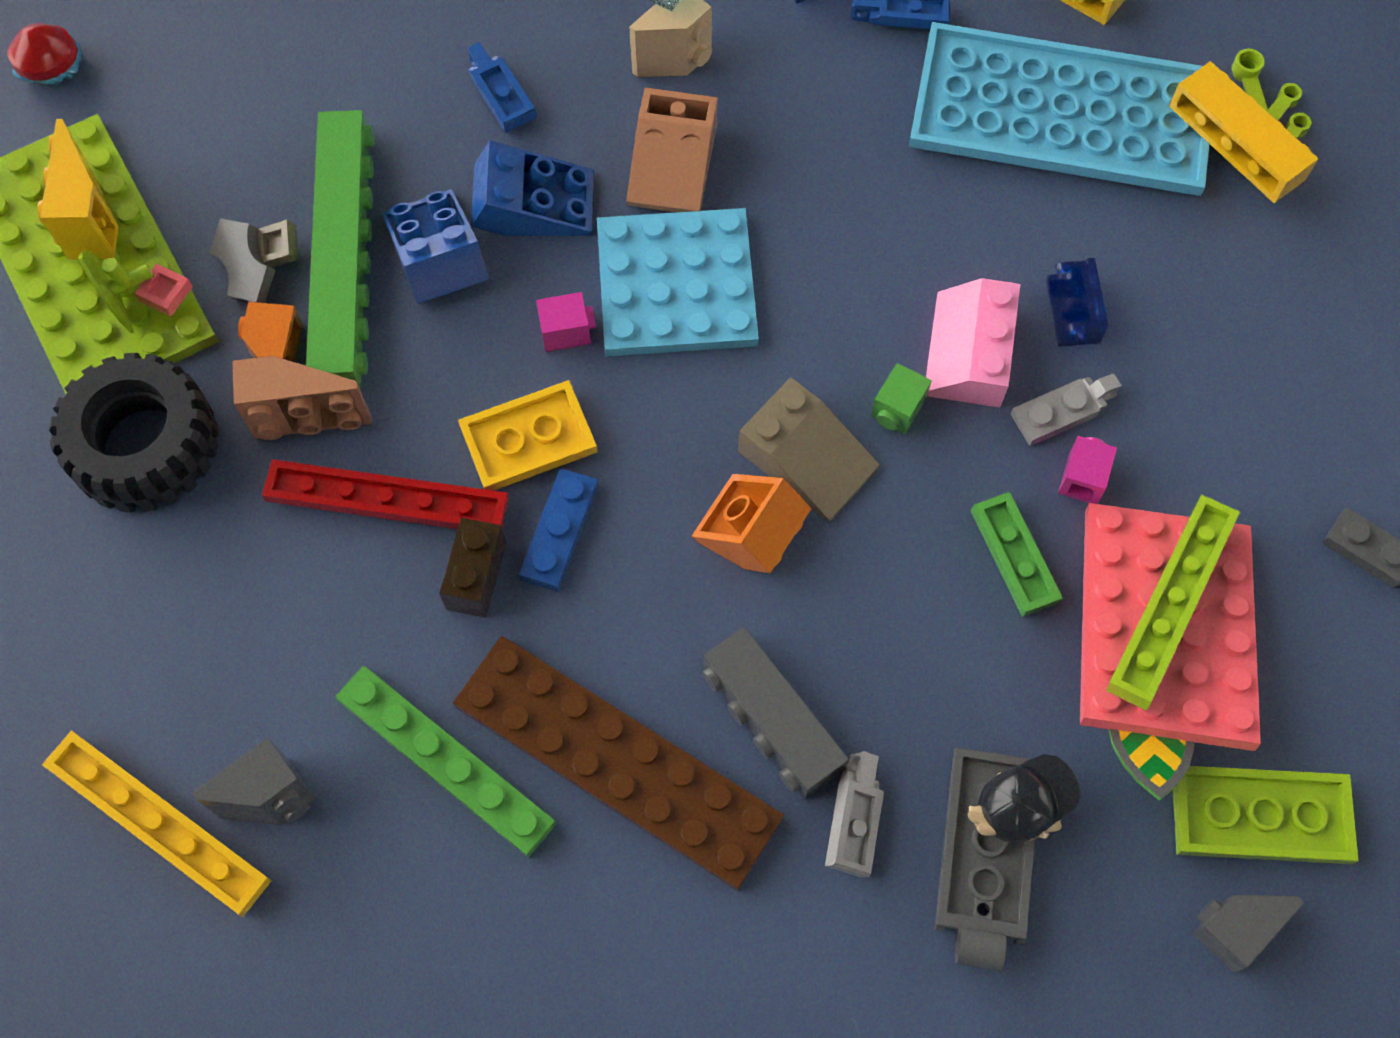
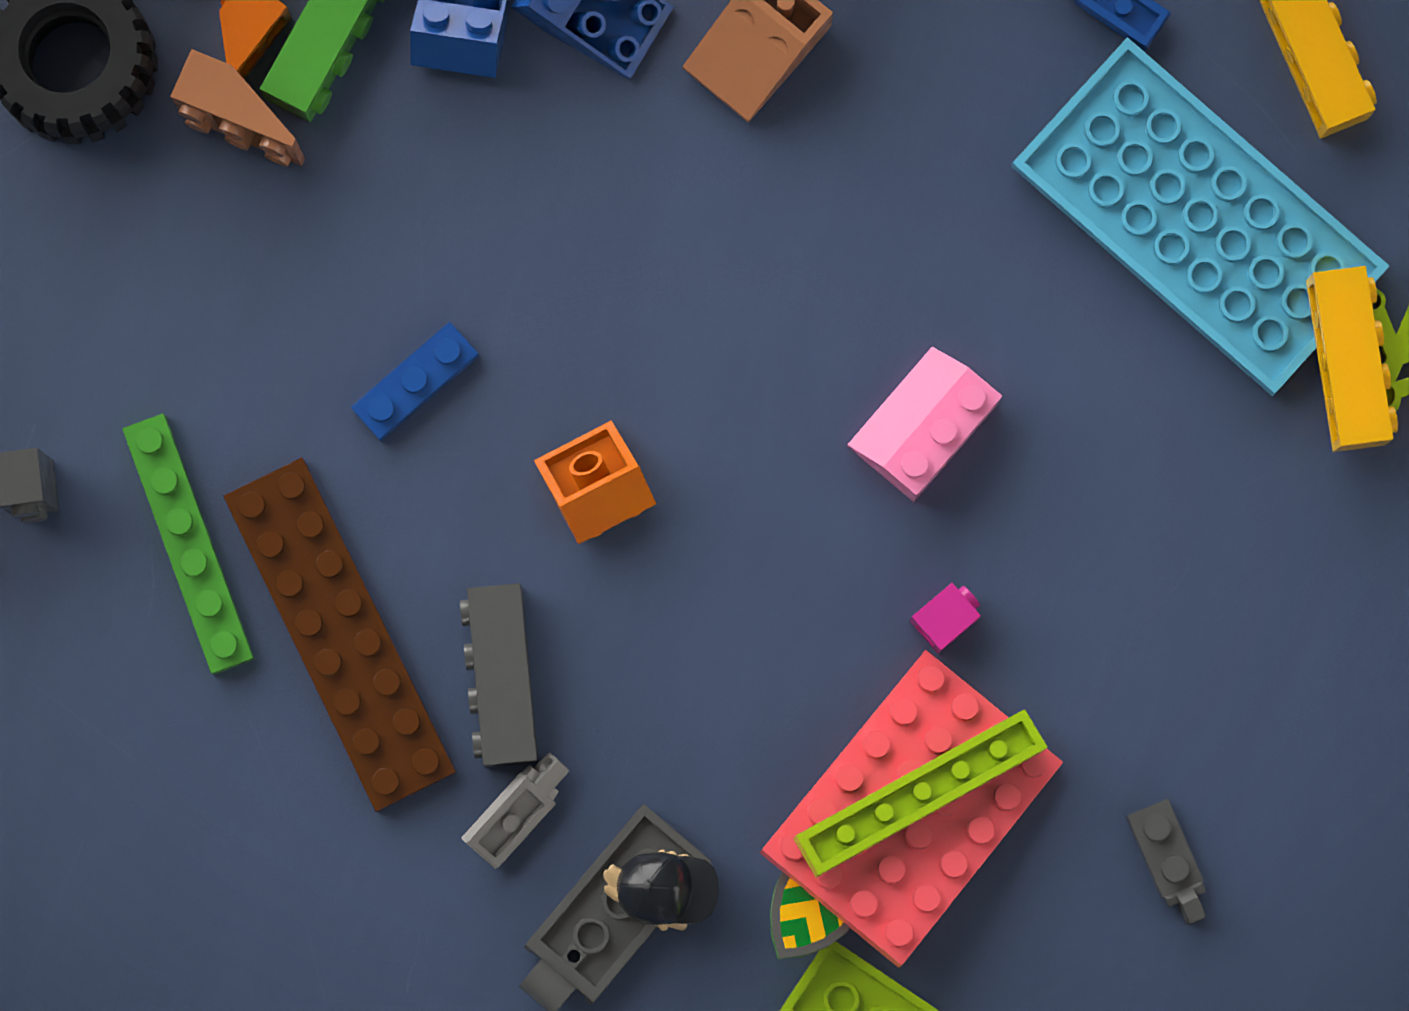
camera: 30 degrees right, 15 degrees up
(381, 495) = (271, 256): red plate -> none
(473, 567) = (311, 377): dark brown brick -> none
(527, 436) = (437, 270): yellow plate -> none
(565, 321) = (542, 169): dark pink brick -> none
(676, 282) = (680, 183): medium azure plate -> none
(808, 447) = (693, 442): dark tan slope -> none
(900, 398) = (814, 441): bright green brick -> none
(1016, 554) = (822, 658): bright green plate -> none
(1064, 408) = (971, 540): light grey hinge -> none
(1077, 303) = (1057, 441): clear blue hinge -> none

